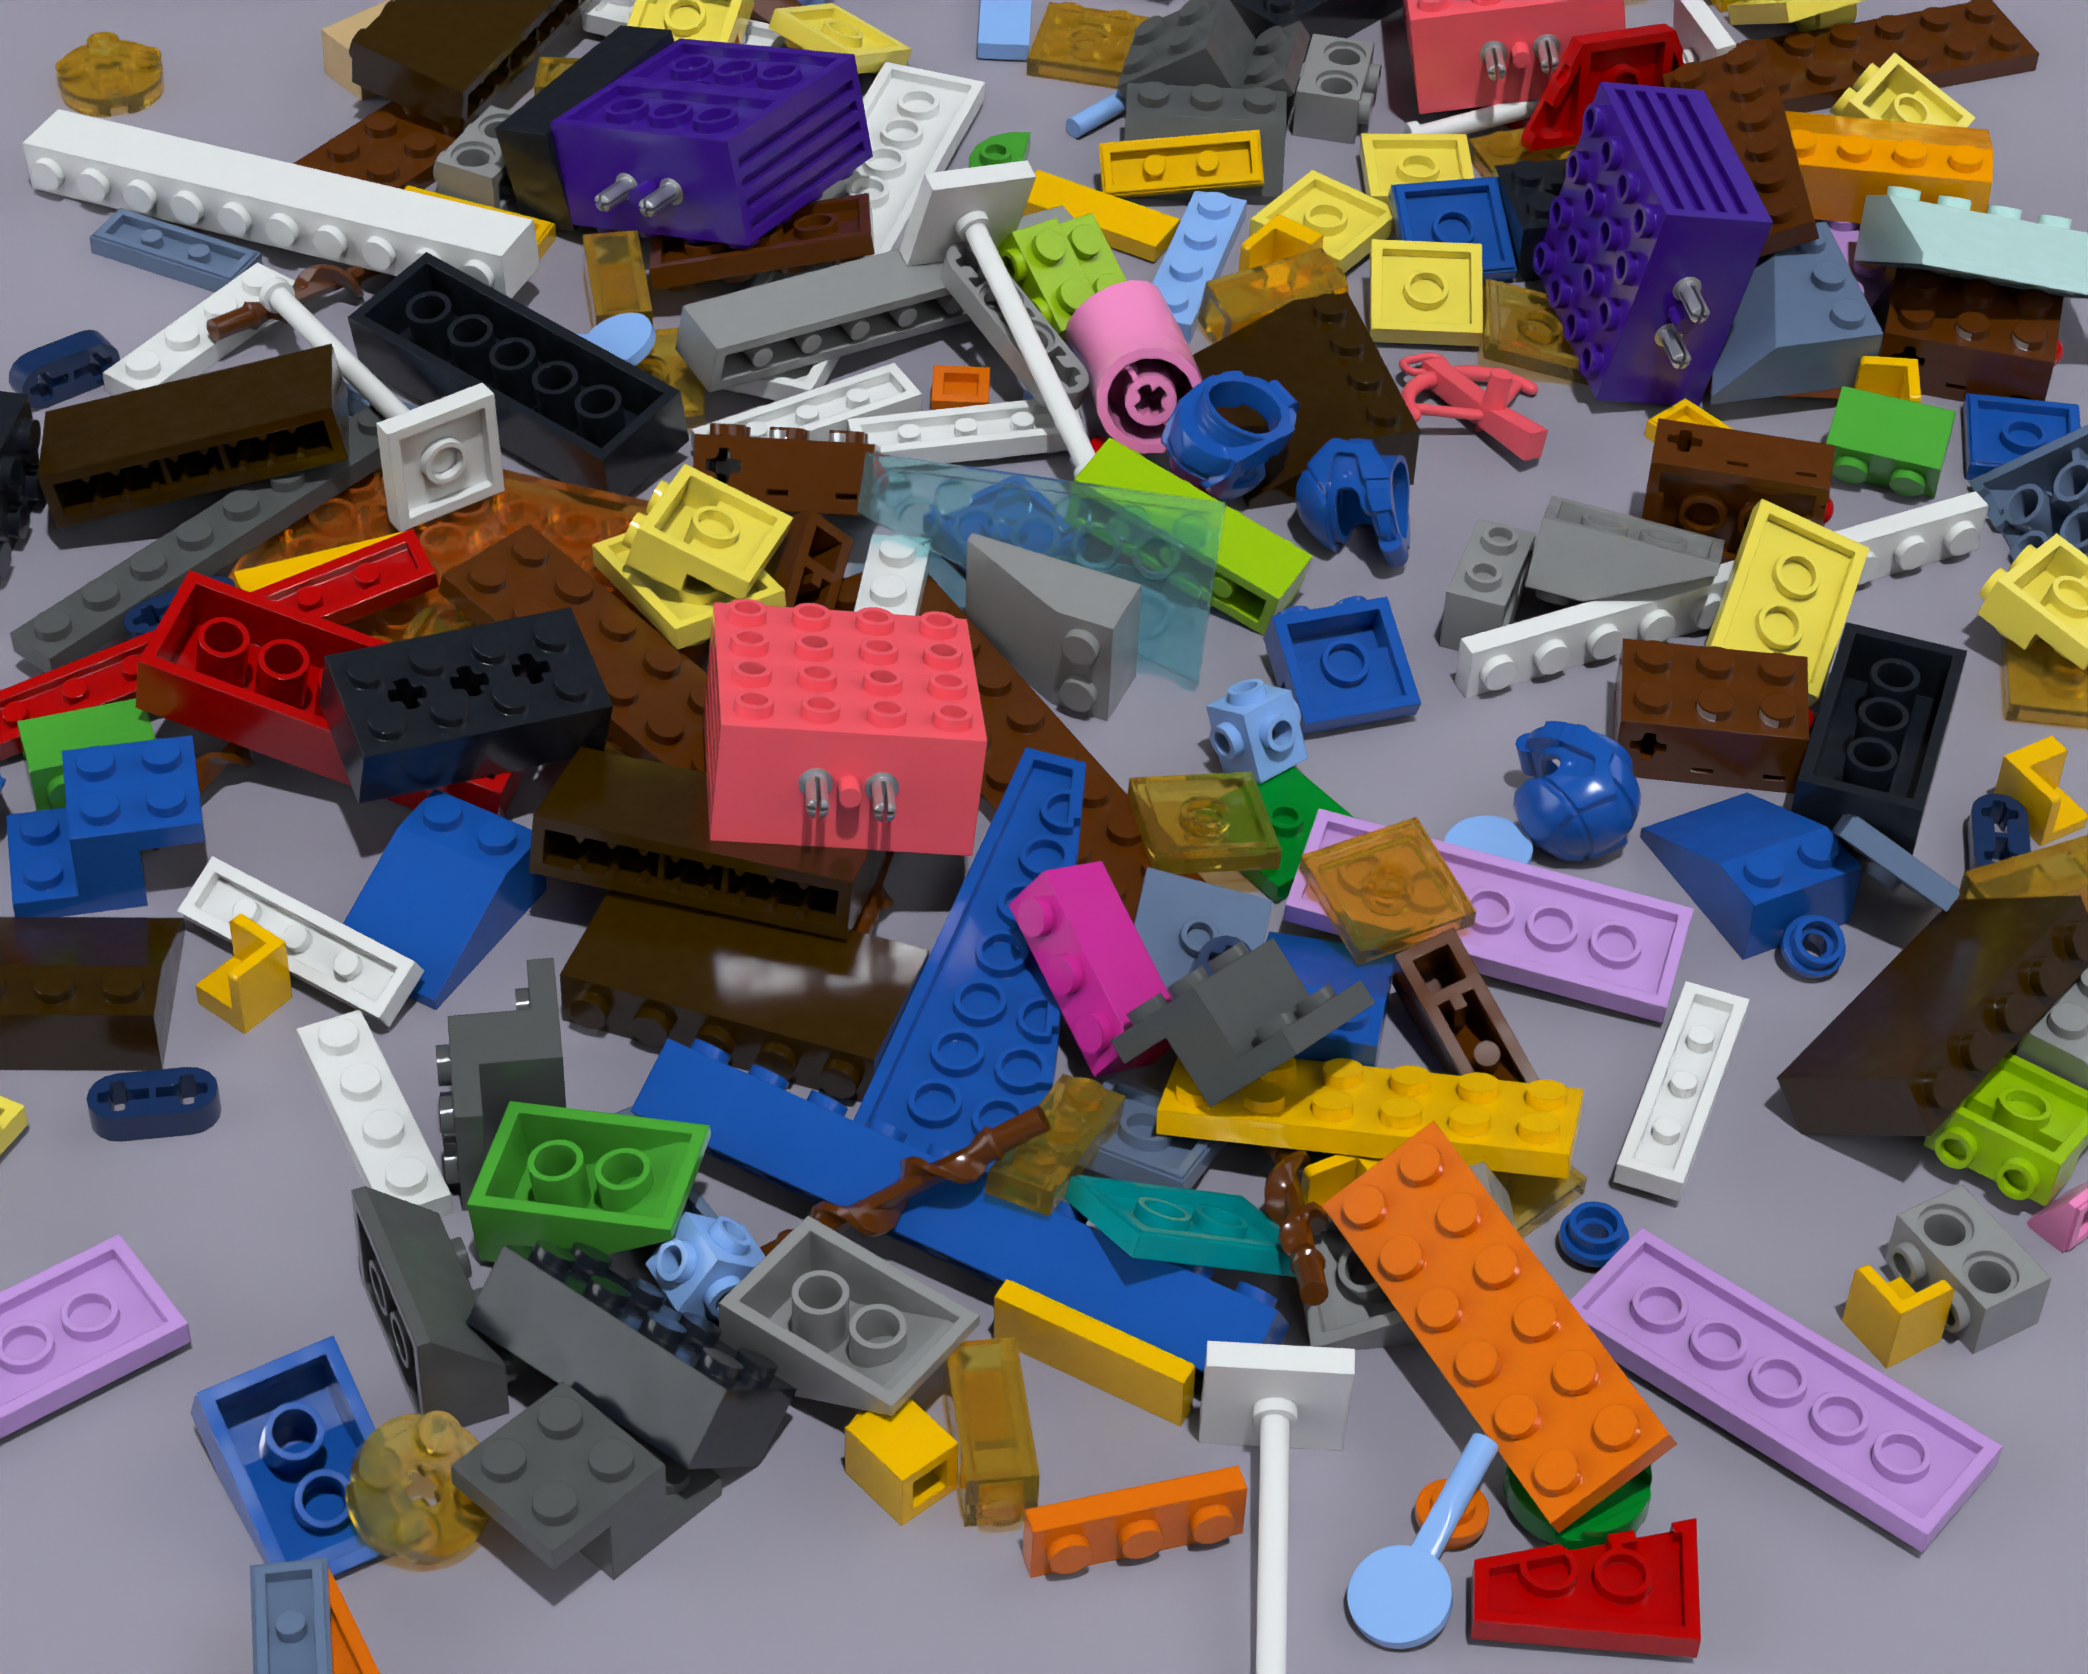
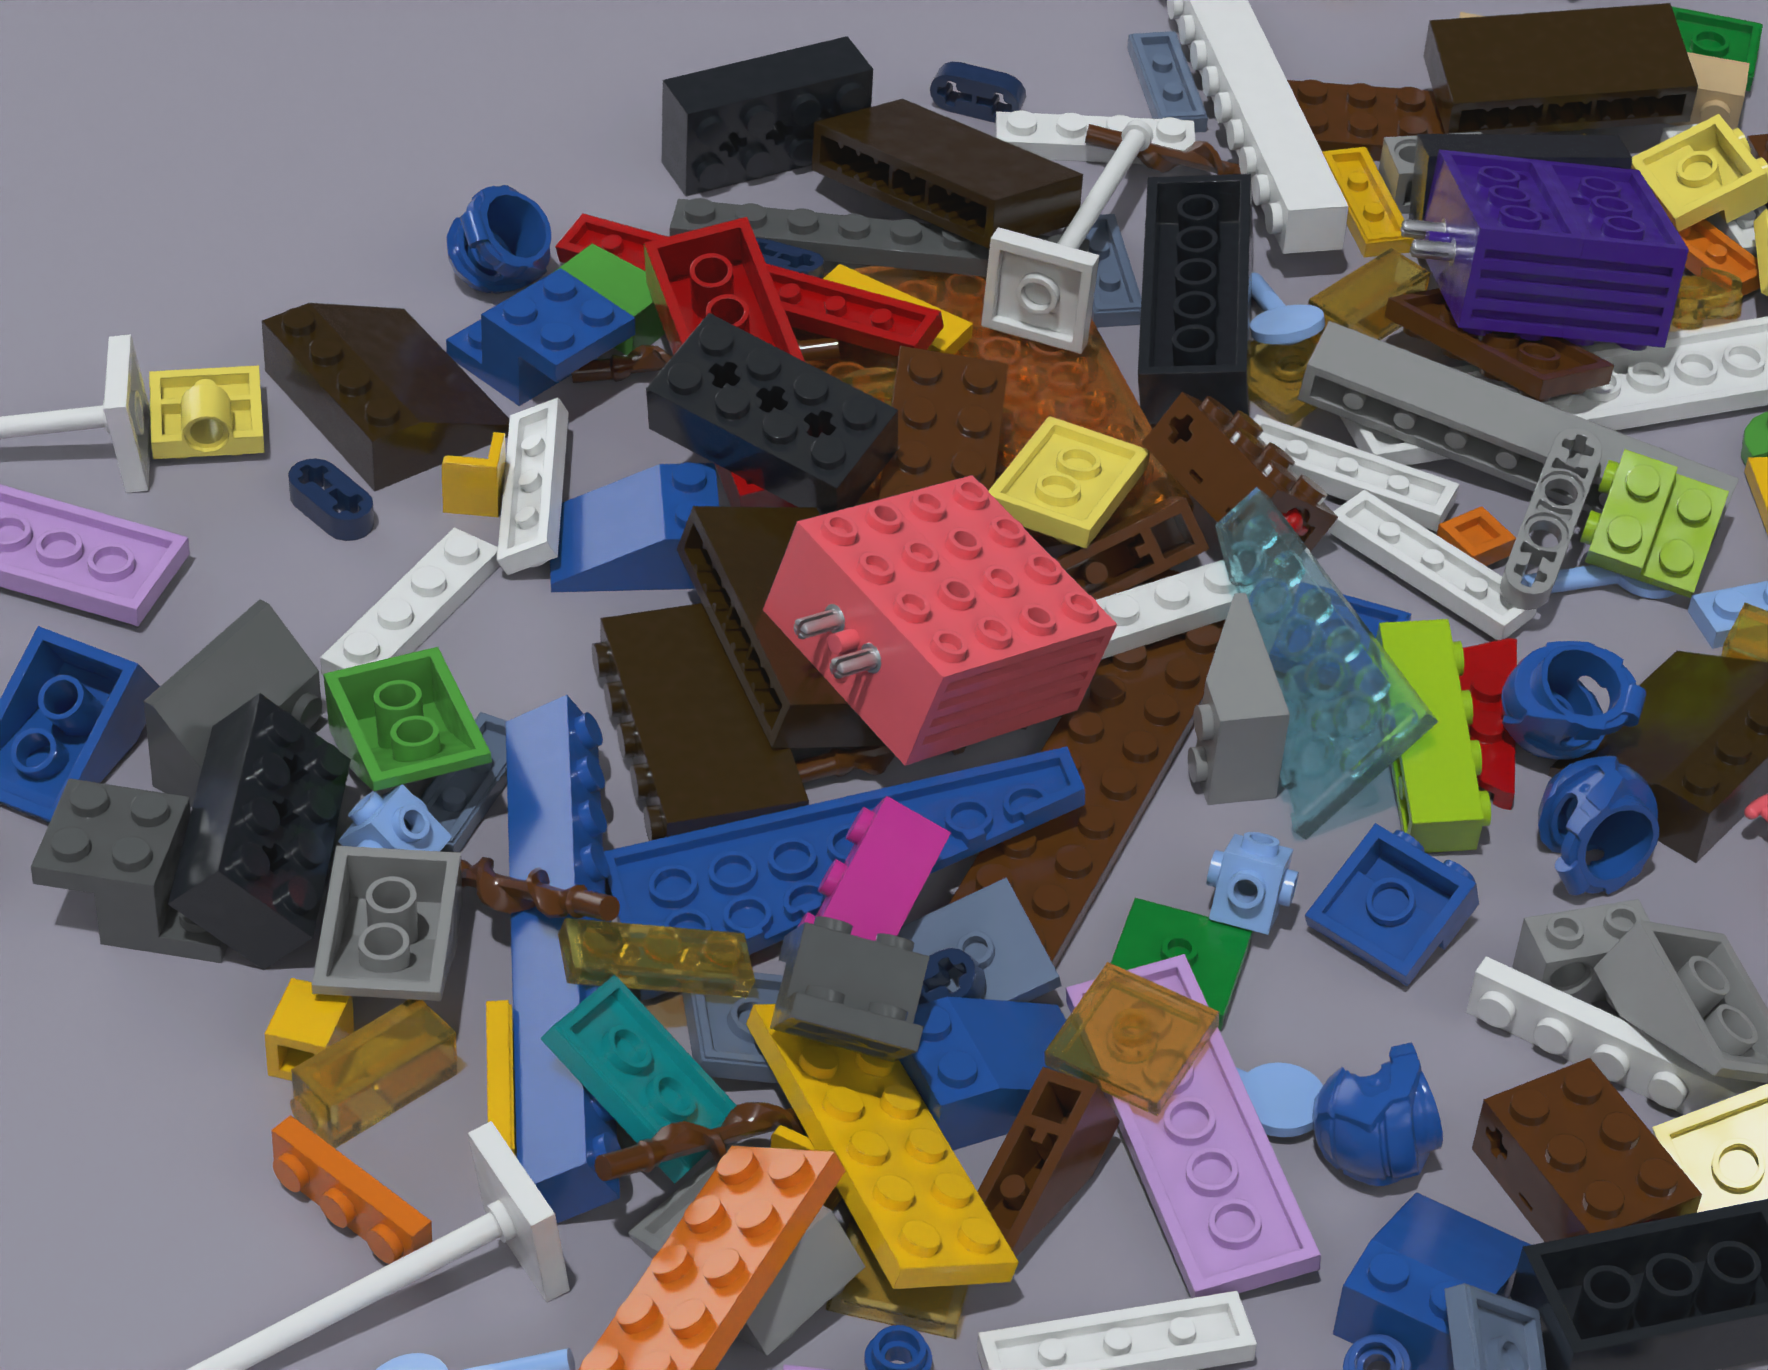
camera: 55 degrees right, 0 degrees up
(382, 1473) = (65, 757): clear yellow plate -> none
(495, 1062) = (490, 644): dark grey bracket -> none
(705, 533) = (1087, 454): light yellow plate -> none
(983, 209) = (1604, 408): white tile -> none
(1133, 361) = (1614, 599): bright pink brick -> none
(1204, 823) = (1113, 899): clear yellow plate -> none

